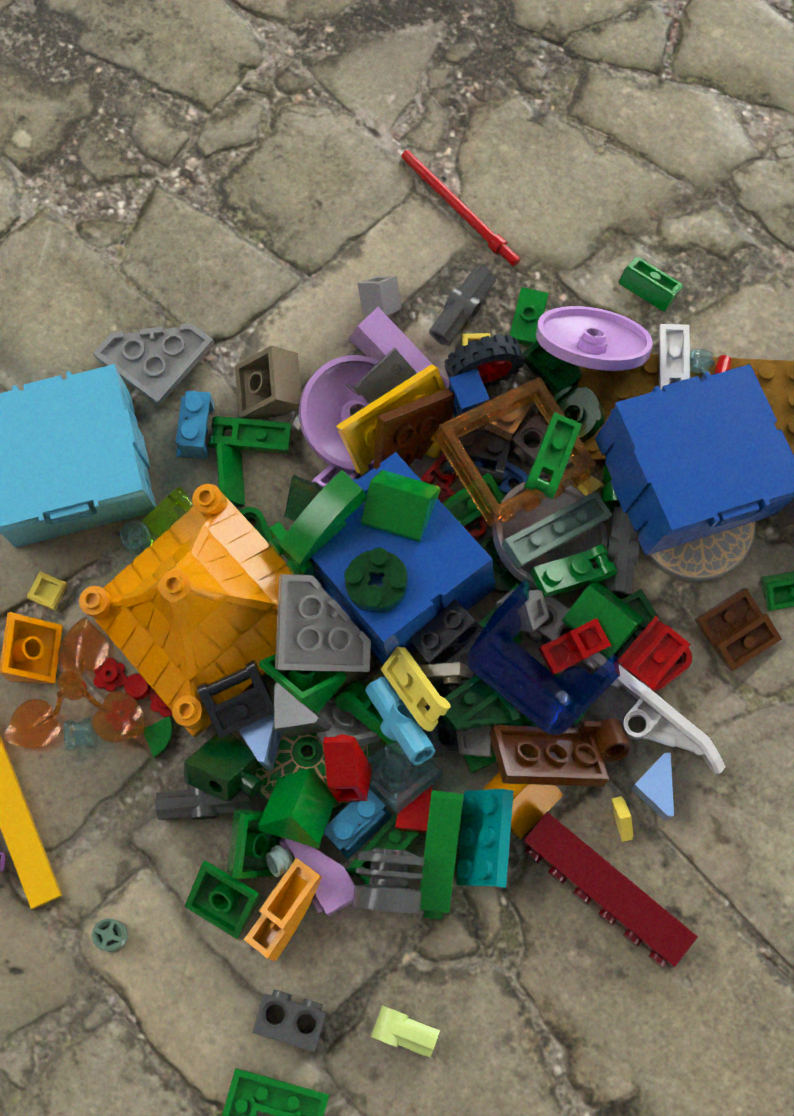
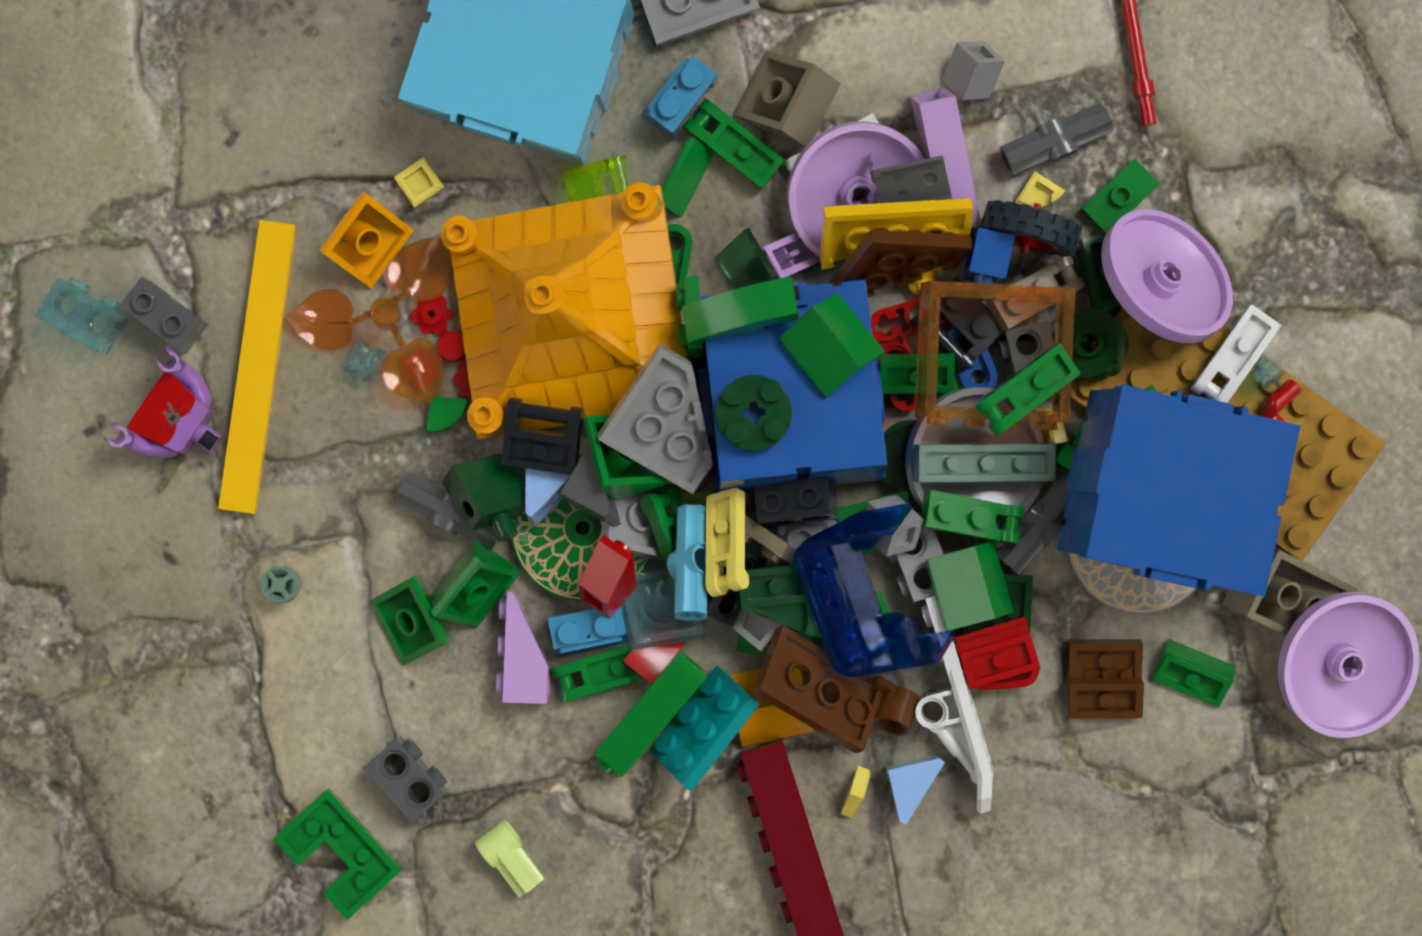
camera: 35 degrees right, 15 degrees up
(132, 532) = (542, 178): clear light blue wheel -> none
(279, 860) = (488, 620): light aqua plate -> none
(284, 910) = (463, 671): light orange slope -> none
(298, 808) = (537, 583): green slope -> none
(388, 882) = (576, 718): dark grey wheel -> none
(574, 646) = (919, 597): red slope -> none
(650, 283) = (1280, 242): green slope -> none

